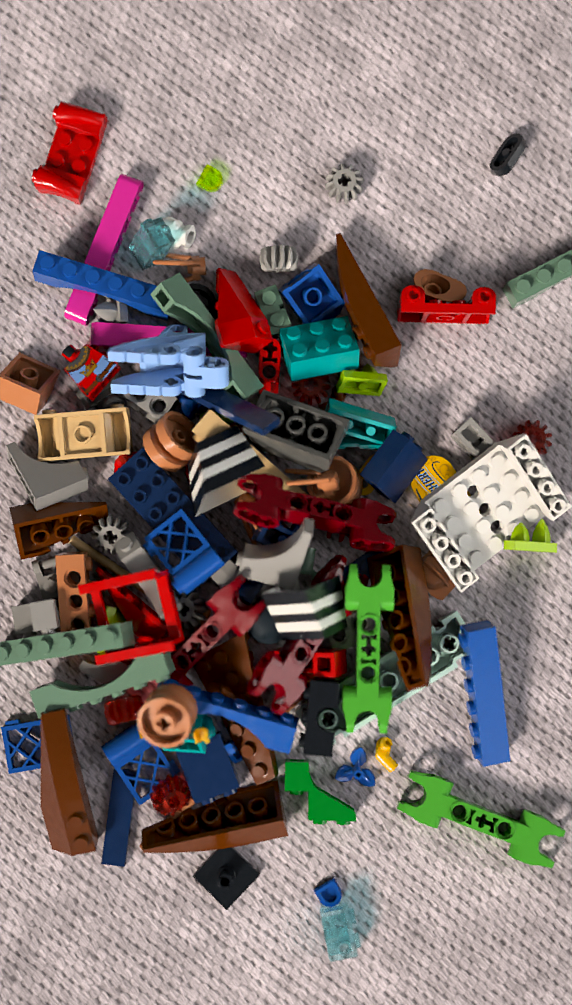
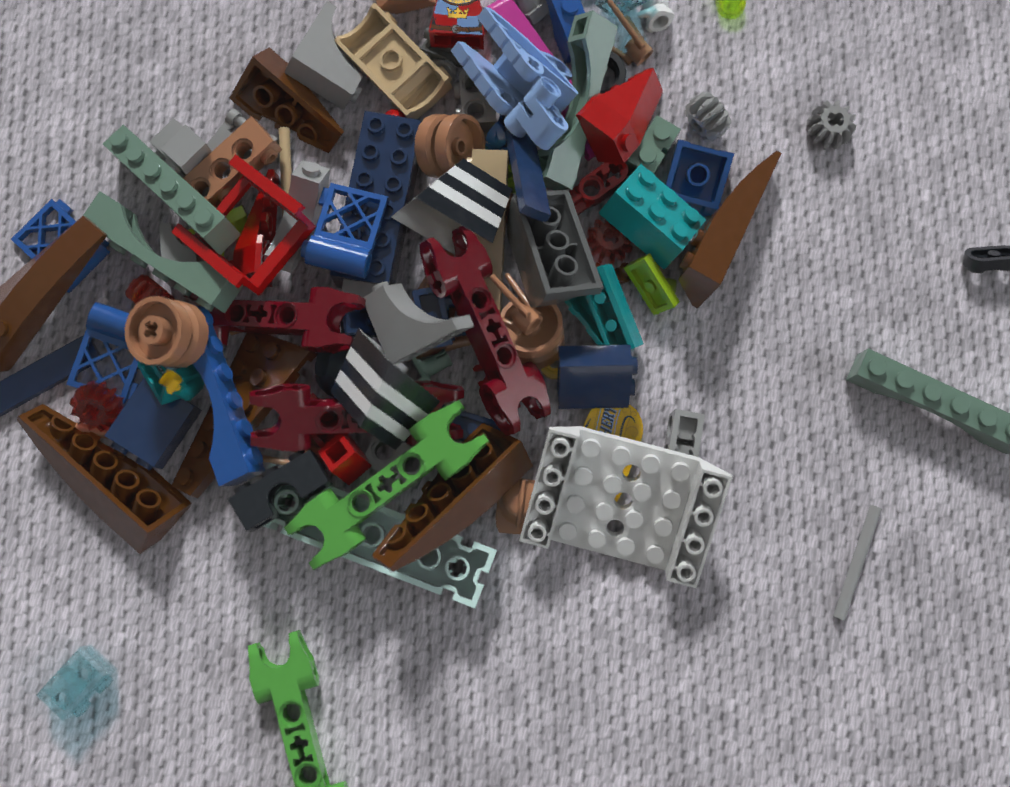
camera: 45 degrees right, 5 degrees down
(104, 528) = (318, 150): light grey gear -> none
(193, 618) = (294, 285): light grey gear -> none
(226, 875) = (56, 524): black tile -> none
(233, 752) = (186, 436): blue tile -> none
(321, 804) = (197, 564): green arch -> none
(329, 893) = (112, 642): blue tile -> none
(364, 776) = (250, 569): blue plant -> none
(382, 753) = (295, 589): yellow arm -> none
(413, 308) = (782, 305): red piece -> none
(439, 286) = (804, 287): nougat piece -> none
(484, 692) = (433, 644): blue brick -> none
(539, 434) = (742, 505): clear red gear -> none
(540, 539) = (635, 584): lime tile -> none

